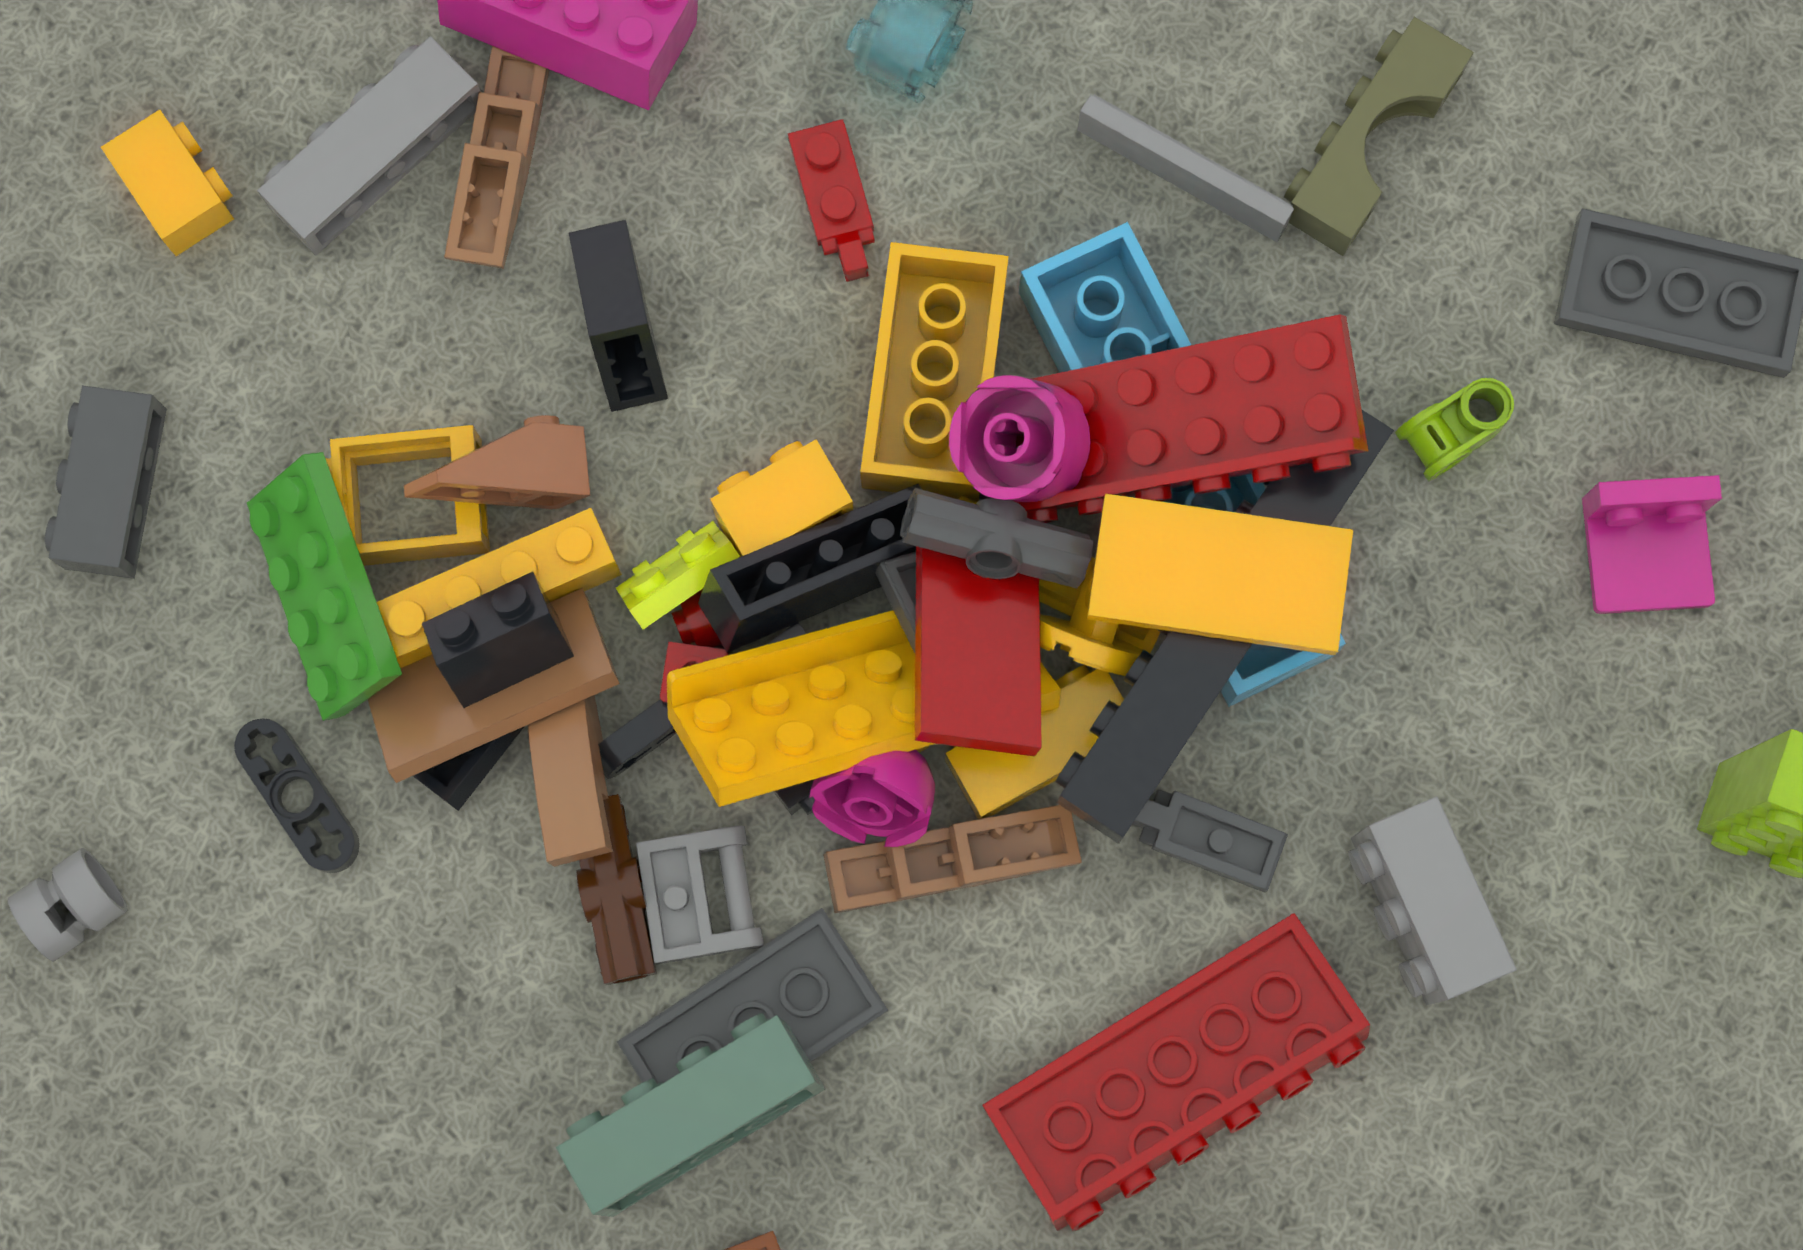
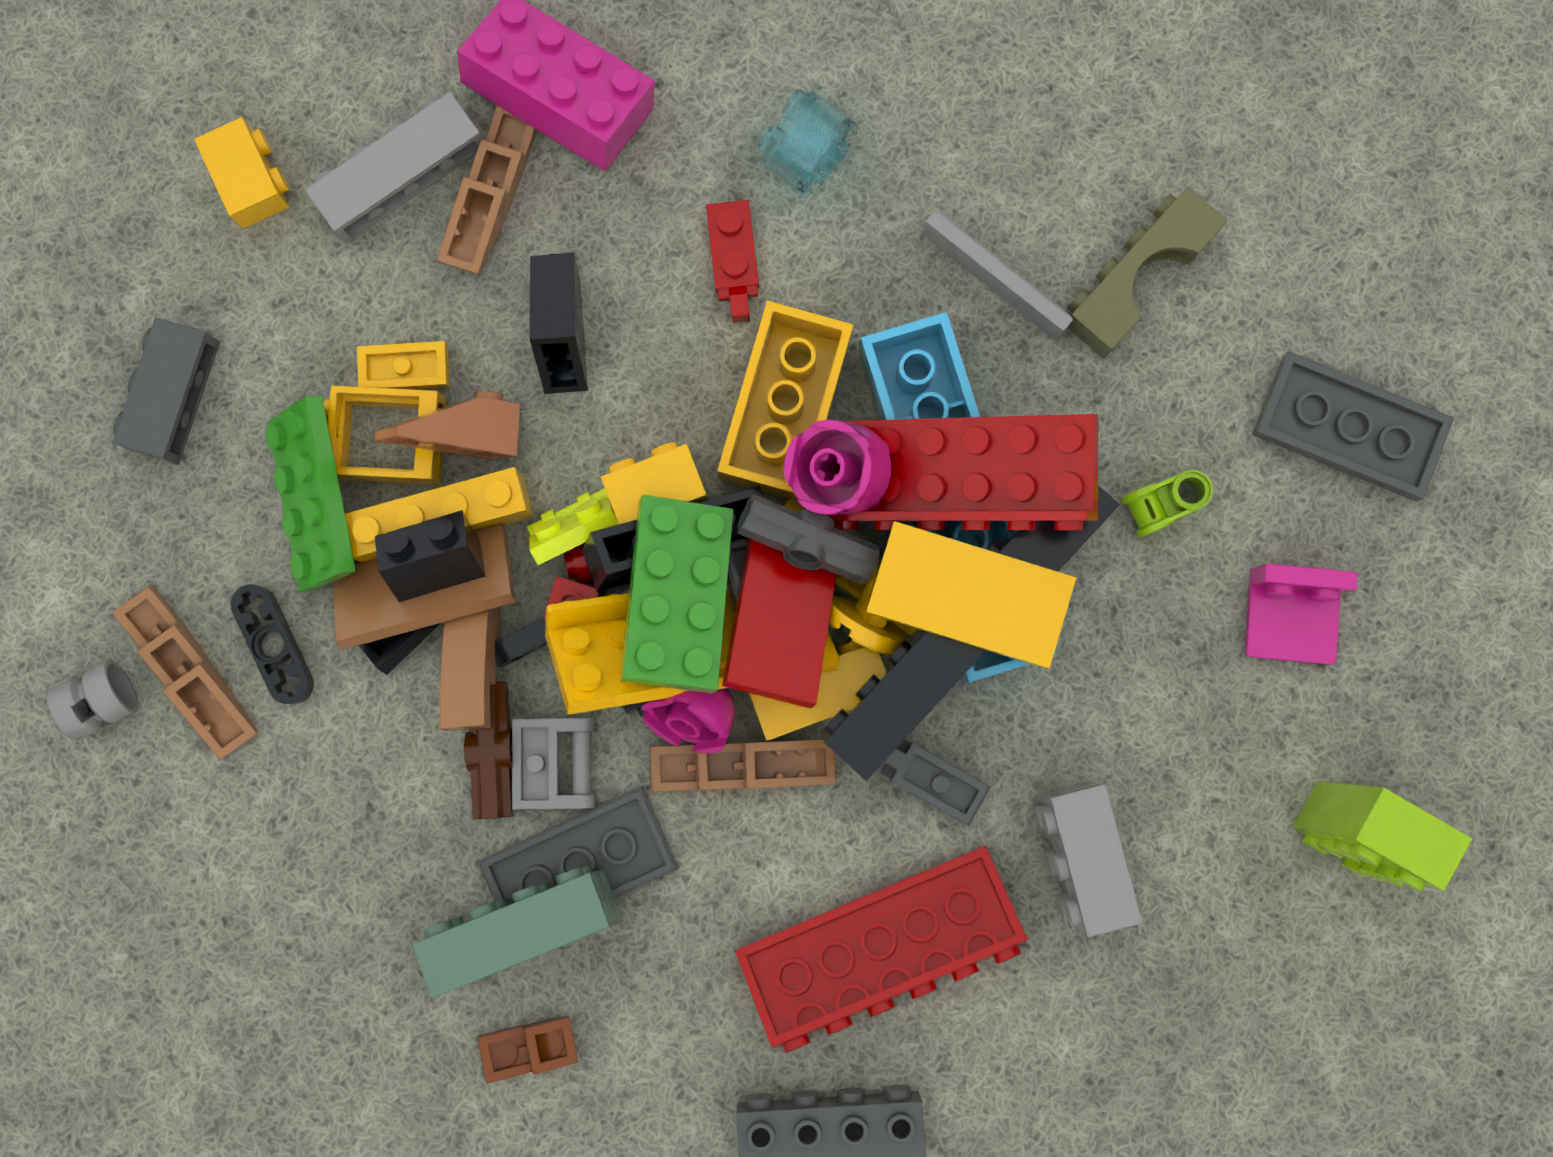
camera: 10 degrees right, 5 degrees up
(186, 850) = (186, 672): none -> medium nougat slope
(420, 400) = (404, 366): none -> yellow plate
(837, 633) = (677, 595): none -> bright green plate

